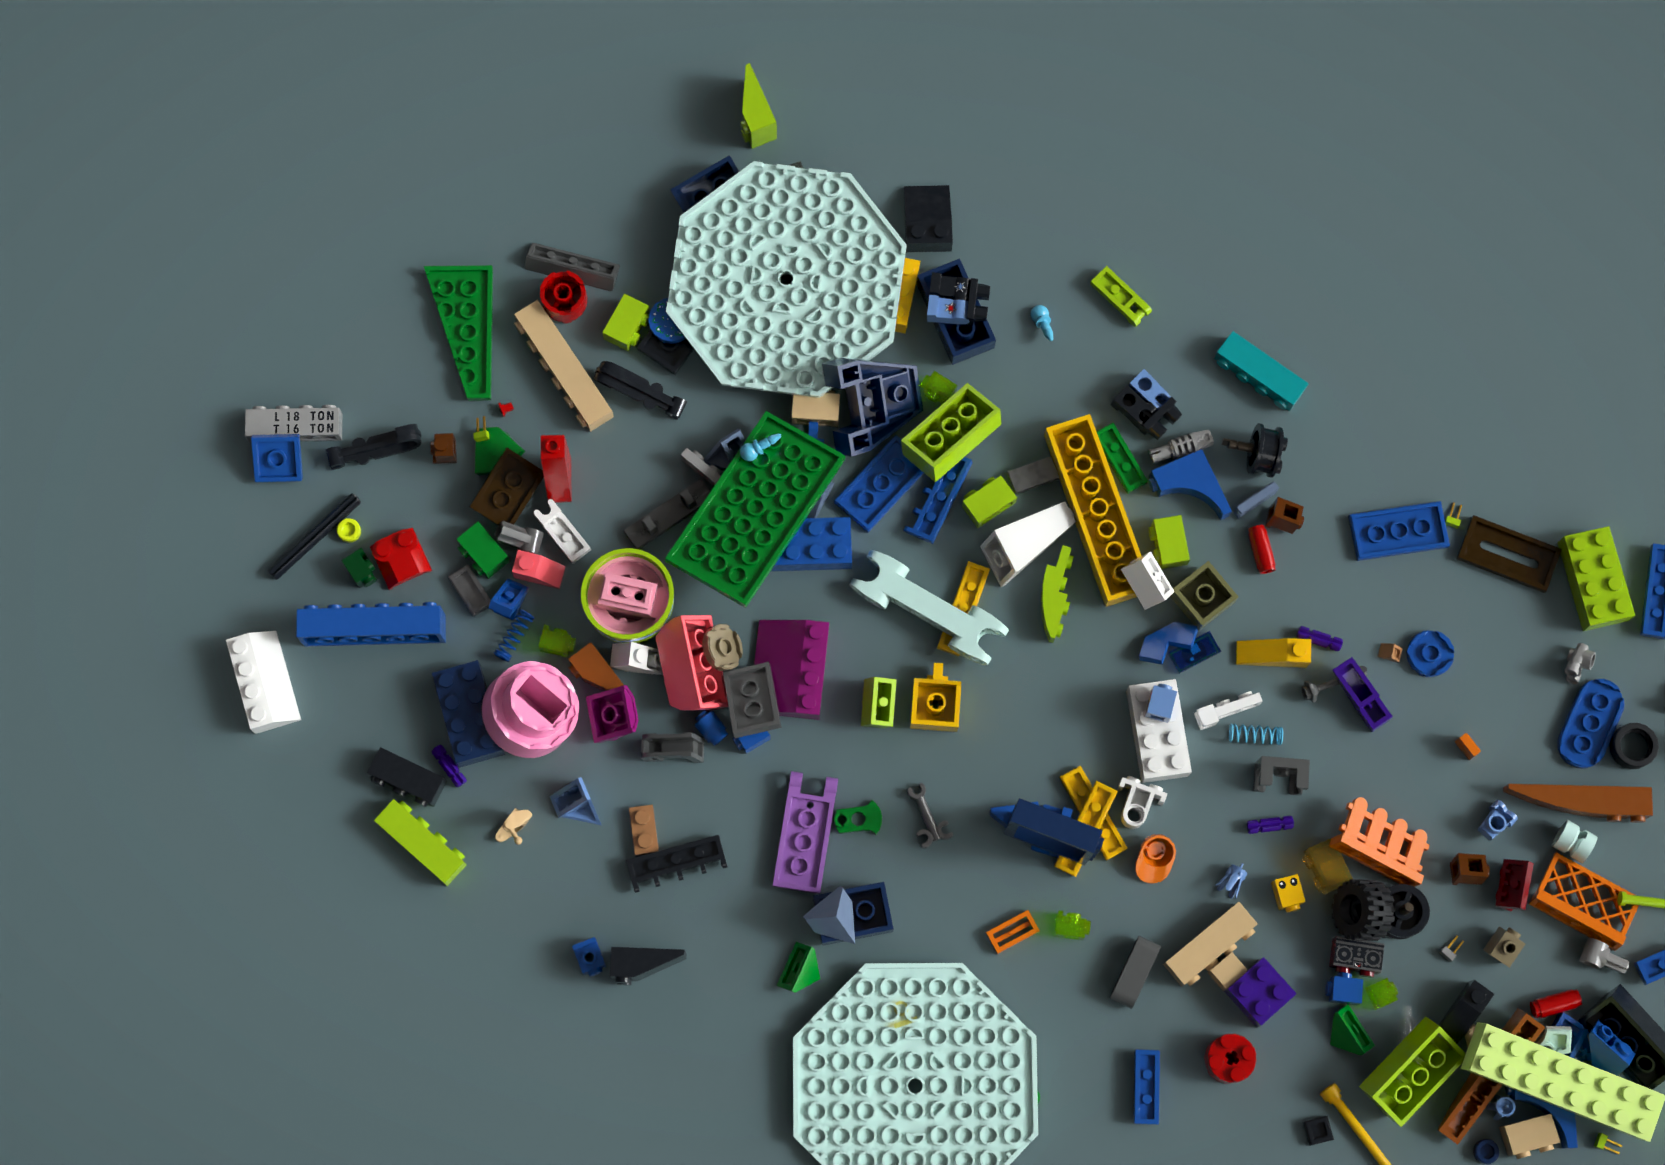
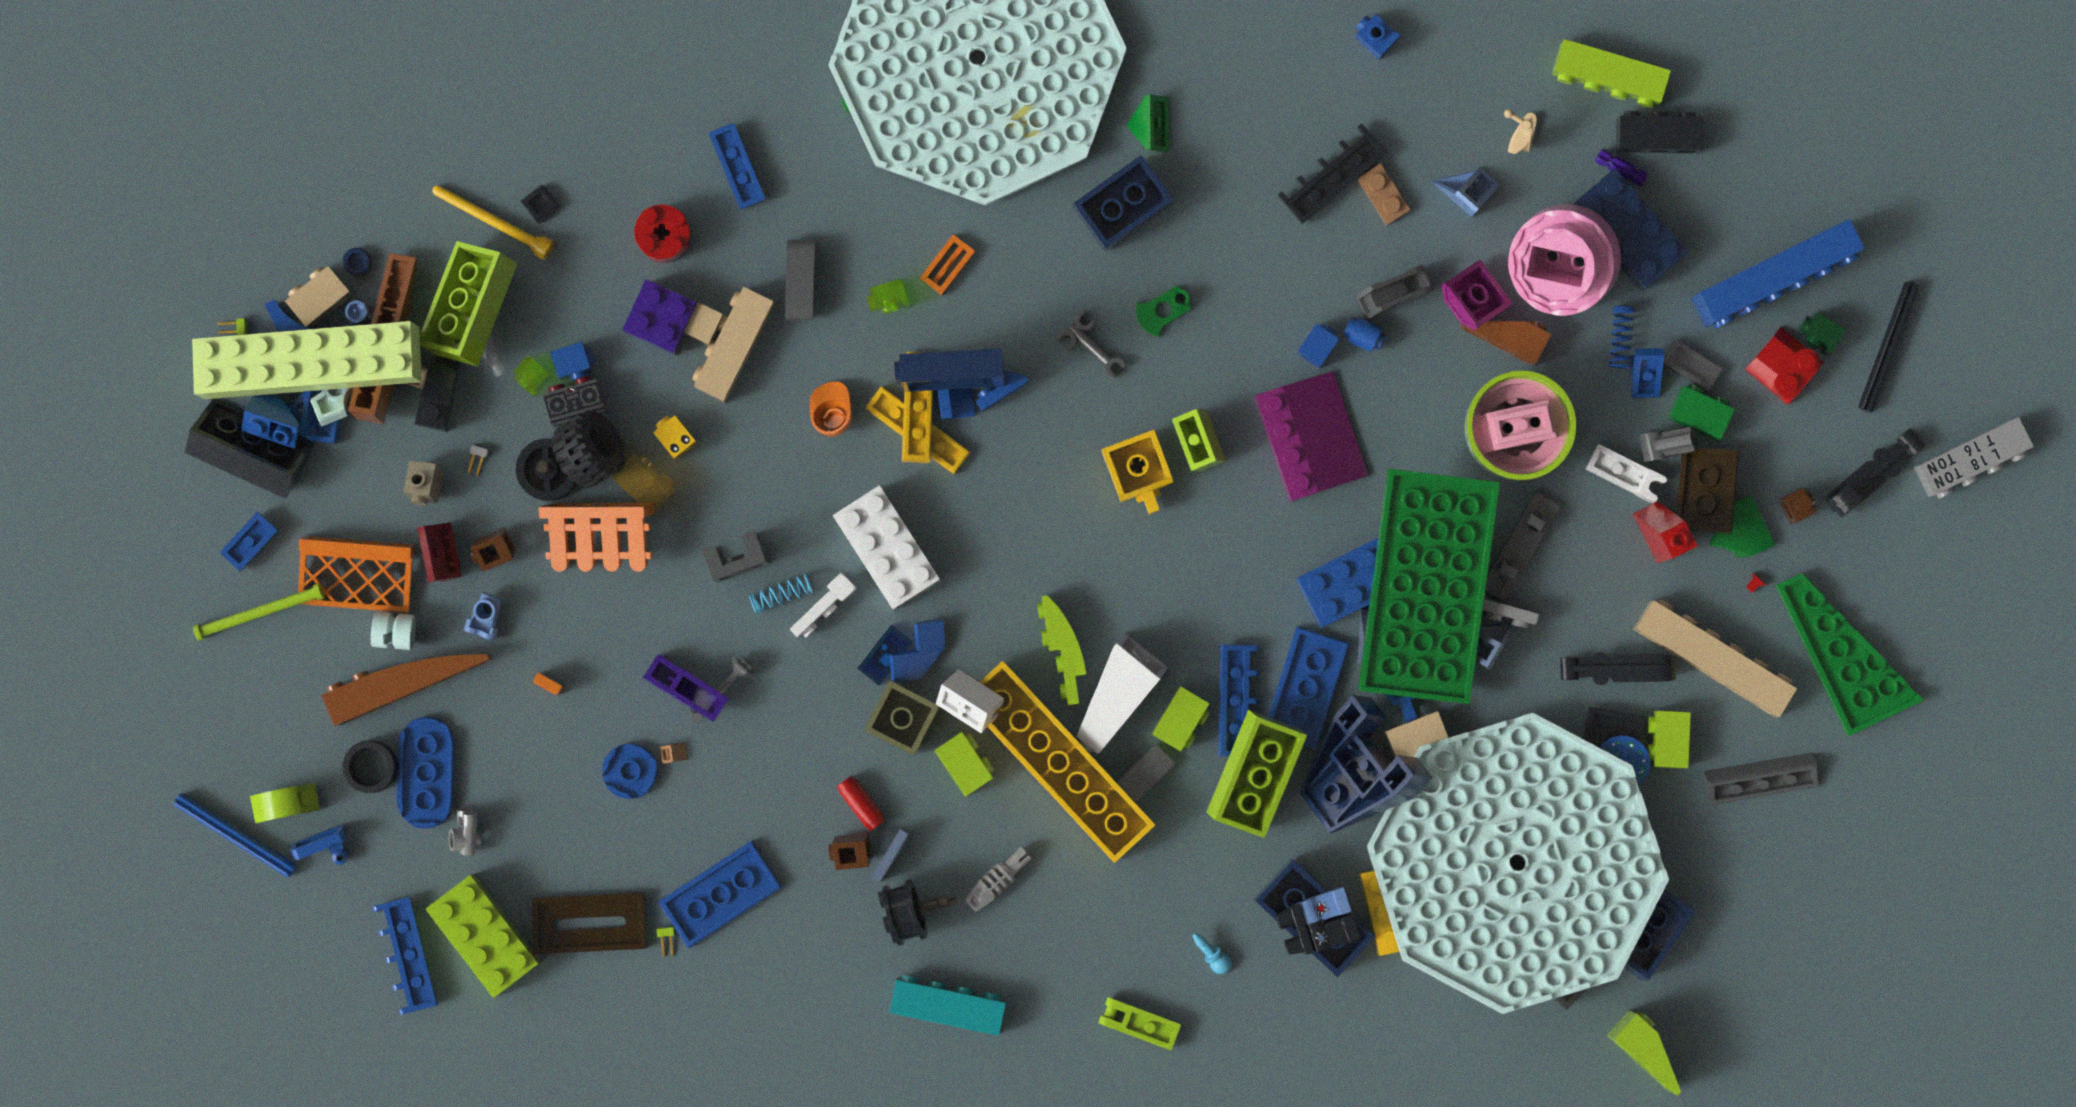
camera: 150 degrees right, 10 degrees up
(263, 680) = (1862, 166): white slope -> none
(277, 457) = (1972, 410): blue plate -> none
(348, 530) = (1855, 370): neon yellow tile -> none
(481, 435) = (1763, 538): lime piece -> none
(538, 569) = (1630, 419): coral slope -> none
(556, 642) = (1573, 350): clear neon green brick -> none
(559, 284) = (1766, 726): red brick -> none
(635, 658) = (1476, 371): white slope -> none
(638, 963) = (1326, 47): black slope -> none
(686, 672) = (1415, 388): coral windscreen -> none
(722, 647) = (1393, 423): dark tan tile -> none
(750, 451) = (1463, 648): medium azure bar -> none
(752, 700) = (1334, 378): dark grey plate -> none
(804, 837) = (1211, 263): medium lavender hinge -> none
(833, 916) = (1141, 185): sand blue slope -> none
(928, 218) = (1395, 1017): black slope -> none
(938, 387) = (1293, 821): clear neon green brick -> none
(962, 626) = (1143, 563): light aqua piece -> none
(966, 596) = (1154, 589): yellow tile -> none
(1121, 458) = (1059, 837): green tile -> none
(1139, 800) = (875, 465): white pin -> none
(1146, 404) = (1048, 906): black hips -> none
(1161, 703) = (897, 570): medium blue brick -> none
(1192, 477) = (973, 849): blue arch -> none
(1232, 880) = (739, 424): medium blue piece -> none
(1270, 824) = (724, 503): dark purple axle -> none
(1274, 652) = (799, 692): yellow slope -> none
(1319, 638) = (756, 732): dark purple axle -> none
(1349, 1032) = (548, 319): green slope -> none
(1555, 1003) = (345, 448): red piece -> none
(1597, 954) = (321, 520): light grey axle -> none

